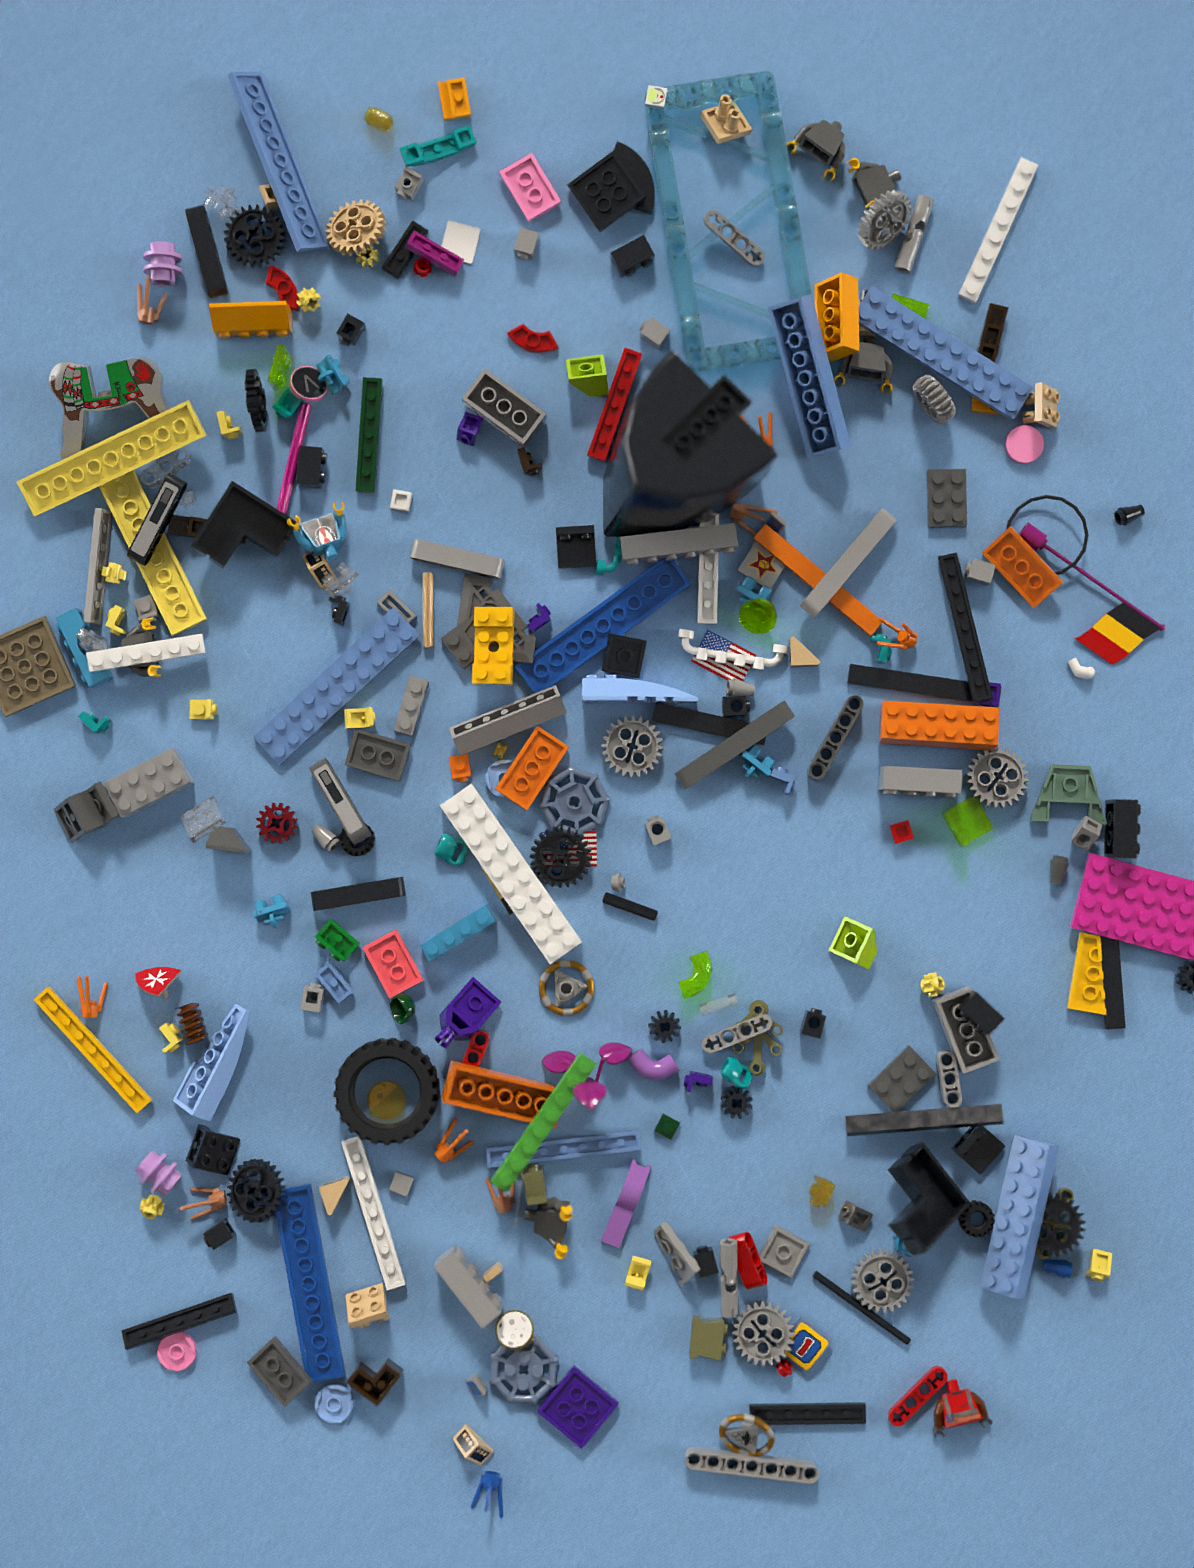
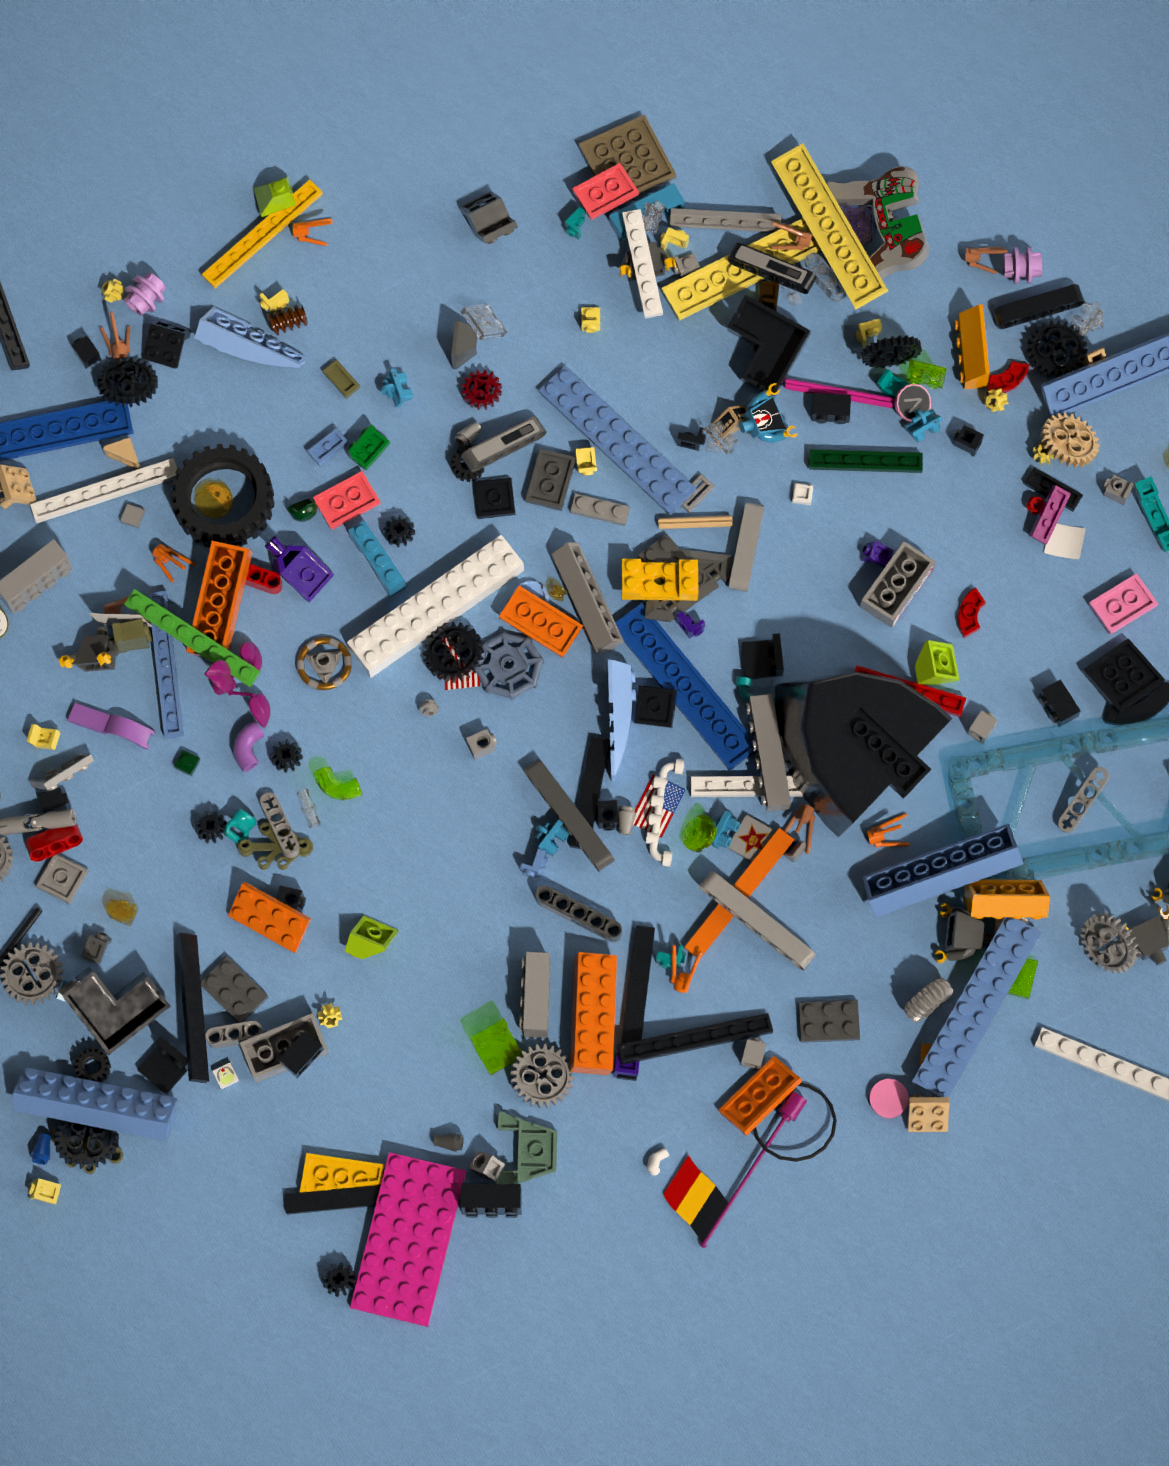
camera: 90 degrees right, 15 degrees down
(51, 1036) = (274, 196): none -> lime slope
(61, 689) = (605, 191): none -> coral plate
(104, 427) = (860, 221): none -> clear purple bracket
(114, 573) = (719, 234): light yellow gear -> none
(122, 487) = (802, 238): none -> nougat plant
(148, 783) = (518, 273): light grey brick -> none
(156, 980) = (328, 285): shield -> none
(258, 968) = (341, 379): none -> olive tile
(310, 1004) = (310, 422): light grey brick -> none
(358, 893) = (414, 466): black beam -> none
(394, 812) = (494, 498): none -> black tile
(431, 916) = (392, 529): none -> black gear
(446, 849) = (459, 546): teal piece -> none
(460, 767) = (539, 557): orange bracket -> none
(493, 1272) = (46, 602): tan tile -> none
(525, 460) = (845, 607): dark brown bracket -> none
(526, 244) = (1065, 601): light grey brick -> none
(630, 906) = (405, 721): black axle -> none
(648, 751) = (569, 701): light grey gear -> none
(700, 1078) = (234, 791): dark purple bracket -> none
(800, 656) = (662, 876): tan slope -> none
(832, 1043) = (269, 917): none -> orange plate
(901, 831) = (484, 982): red plate -> none
(913, 236) = (1092, 978): light grey piece -> none
(987, 1087) = (225, 1076): none -> tile
(992, 331) = (1002, 1061): dark brown slope -> none
(1126, 515) = (820, 1206): black cone -> none

